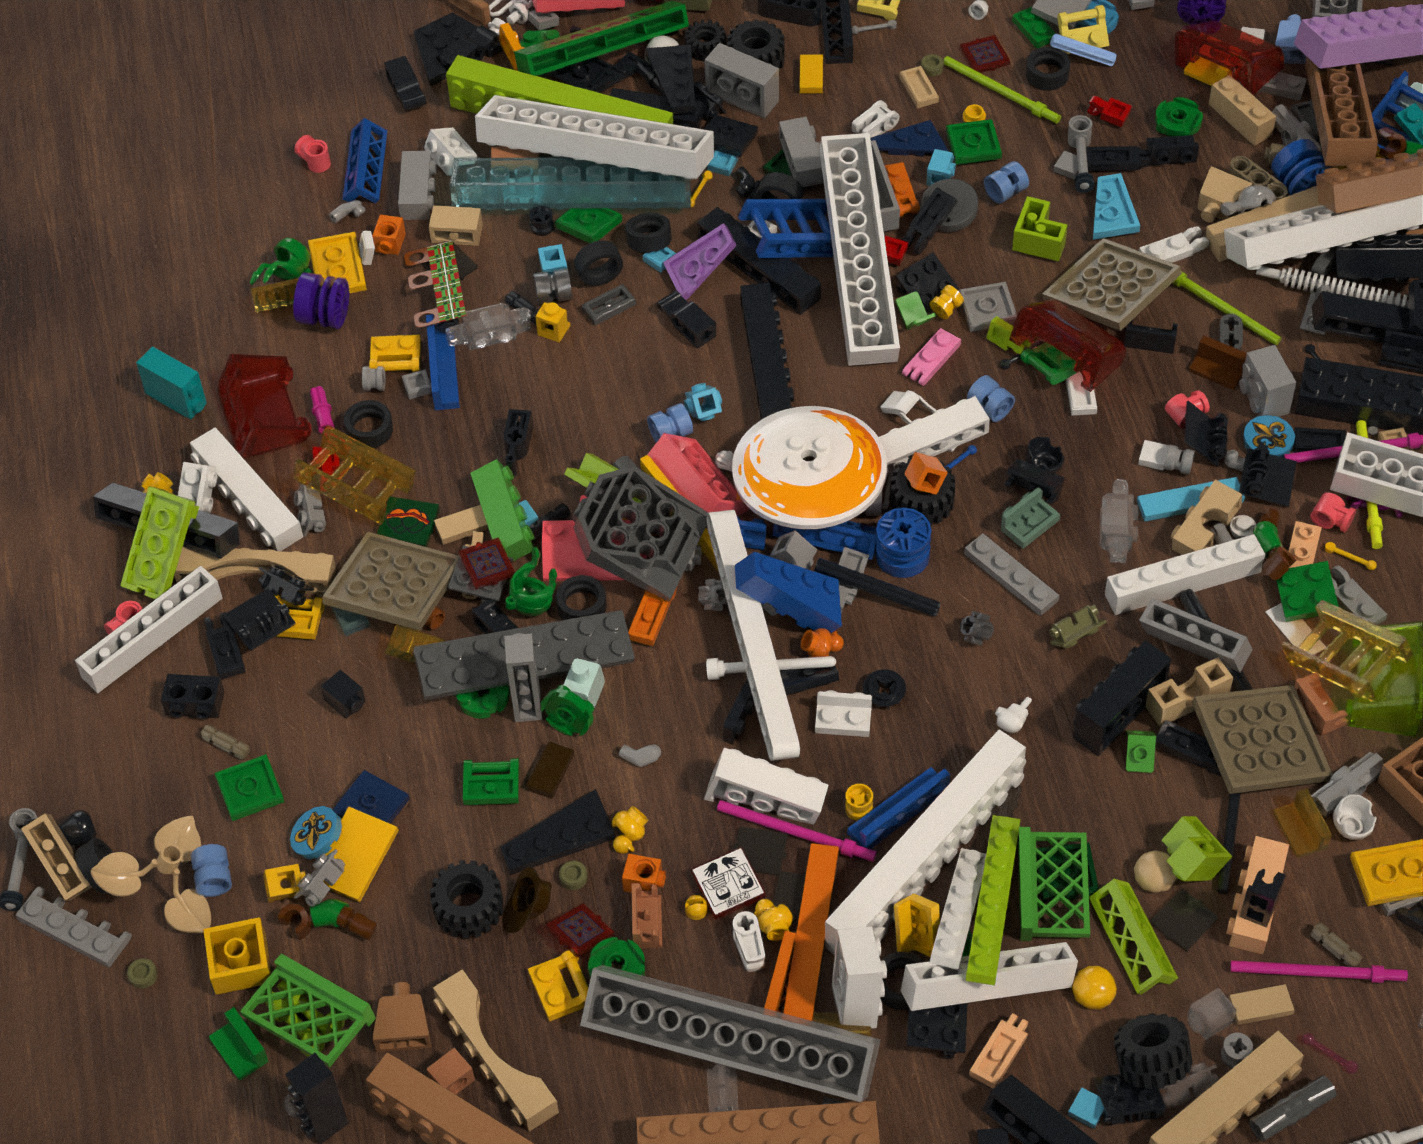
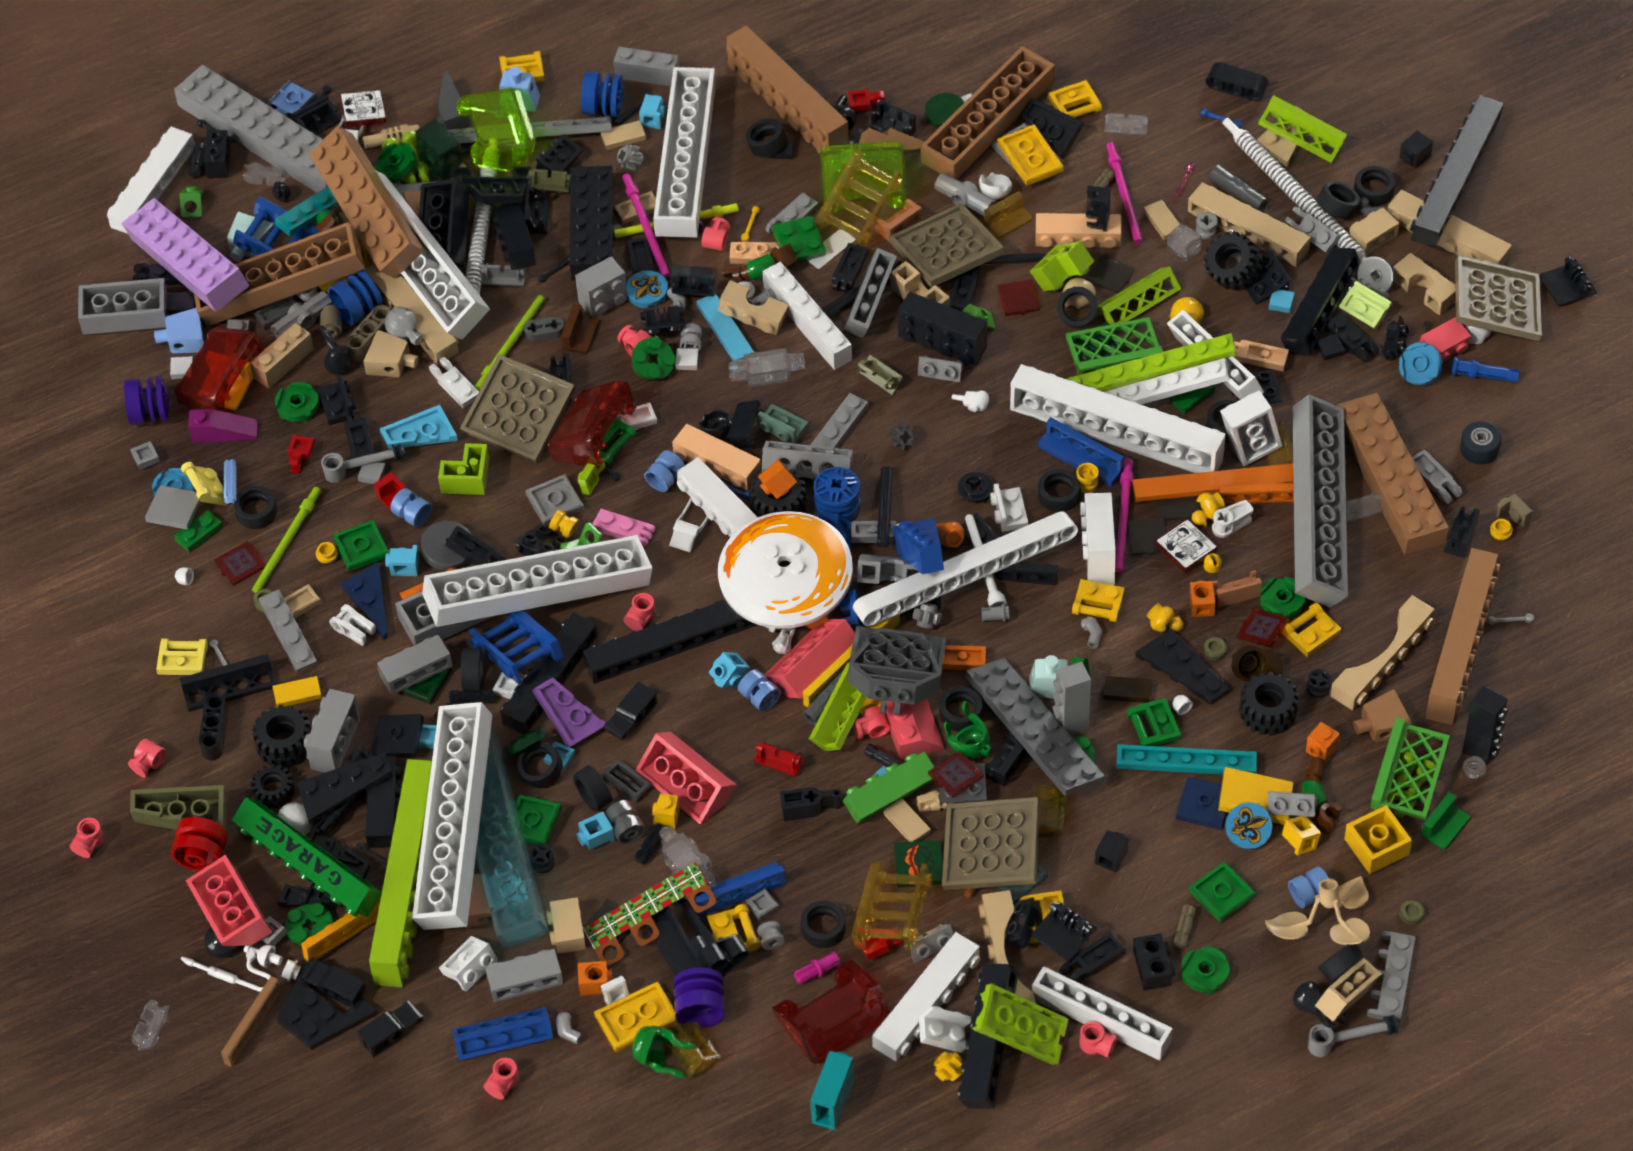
camera: 105 degrees left, 0 degrees up
(166, 758) = (1202, 982): none -> green plate
(386, 312) = (699, 951): none -> black panel
(393, 941) = (1322, 742): none -> orange brick
(429, 800) = (1183, 759): none -> teal plate
(451, 1072) = (1414, 674): nougat brick -> none
(476, 960) = (1316, 678): none -> black wheel
(507, 815) = (1182, 704): none -> white hinge
(584, 429) = (778, 759): none -> red hinge
(591, 347) = (682, 772): none -> coral slope
(674, 220) = (524, 741): none -> dark green tile
(689, 777) = (1098, 595): none -> yellow plate
(696, 669) = (995, 613): none -> light grey pin
(810, 346) = (638, 618): none -> coral piece
(850, 751) = (1058, 476): none -> black tyre
(883, 72) = (287, 631): none -> light grey plate
(916, 924) = (1186, 406): yellow bracket -> none
(962, 526) = (798, 452): none -> light grey brick
(997, 451) = (720, 457): none -> light nougat brick
(1040, 173) = (387, 488): none -> red panel
(1078, 685) = (940, 368): none -> light grey hinge
(1131, 866) = (1077, 291): none -> black tyre
(1147, 404) = (664, 356): none -> green plate
(1160, 55) = (219, 426): none -> magenta slope
(1166, 806) = (1018, 297): none -> clear red piece
(1227, 146) = (337, 358): none -> black piece
(1261, 638) = (849, 266): none -> black hinge

